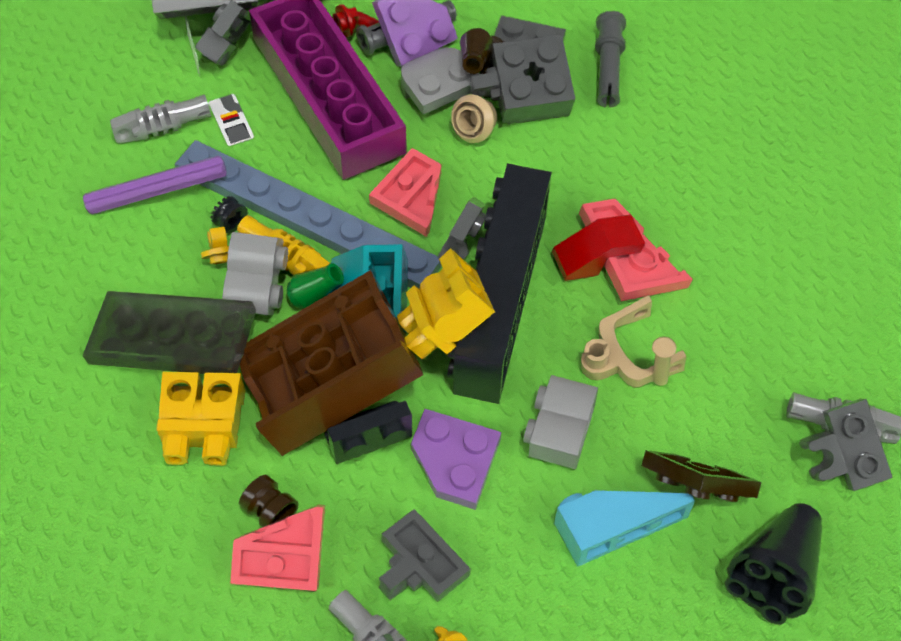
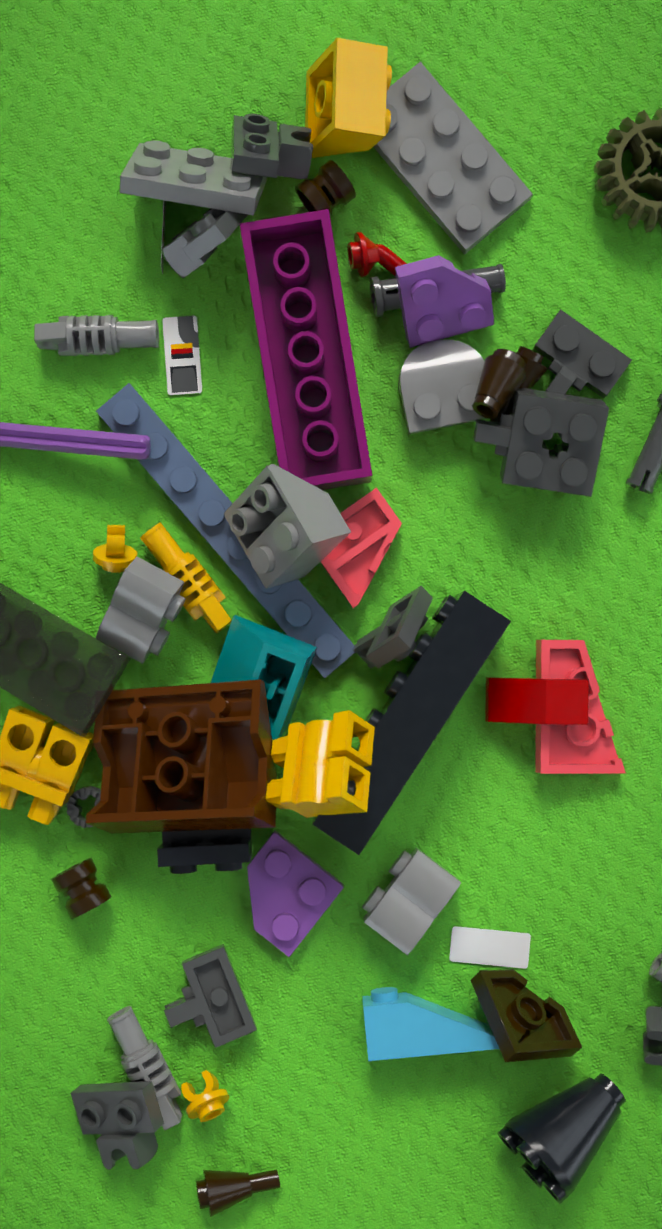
camera: 20 degrees right, 30 degrees up
(229, 214) = (139, 509): black bush -> none
(246, 435) = (75, 810): none -> dark grey bush
(281, 553) = (77, 949): coral wing -> none
(313, 285) = (201, 645): green cone -> none
(350, 176) = (285, 525): none -> light grey slope
(473, 118) = (465, 468): tan cone -> none
(605, 357) = (497, 841): tan piece -> none
(631, 449) = (490, 947): none -> white sticker

